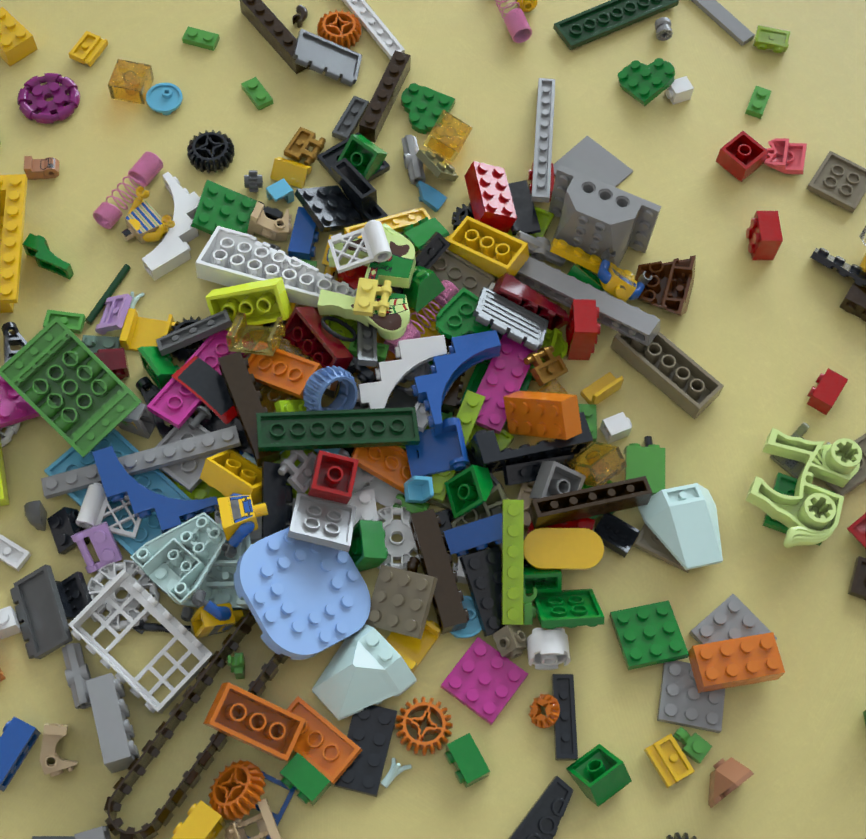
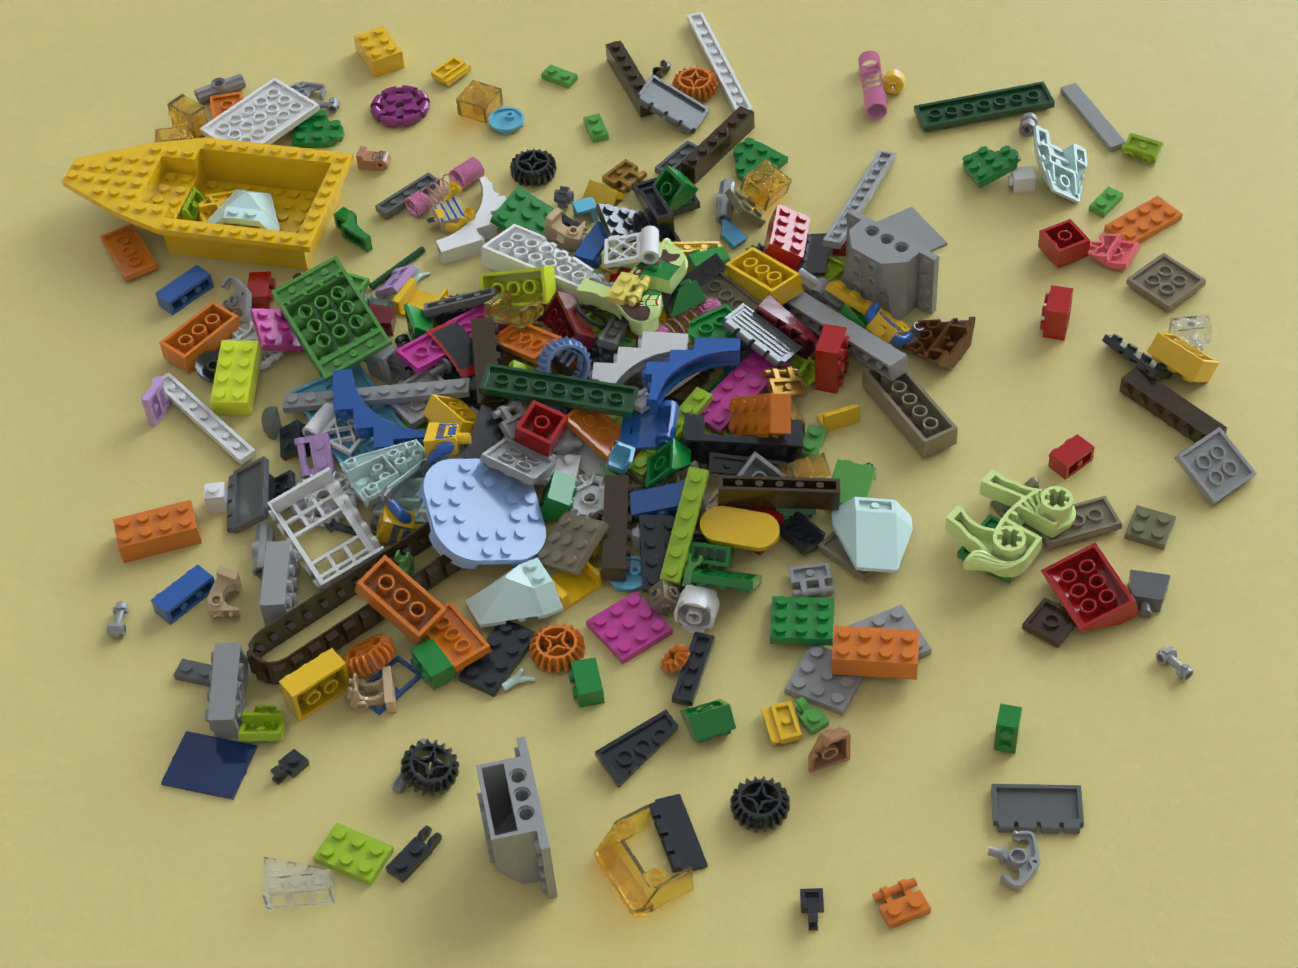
camera: 25 degrees right, 15 degrees down
(84, 212) = (397, 201): none -> dark grey plate
(616, 427) = (838, 448): white brick -> none
(638, 578) = (809, 575): none -> light grey plate
(709, 71) = (1060, 168): none -> light aqua wedge
(798, 117) = (1144, 220): none -> orange plate

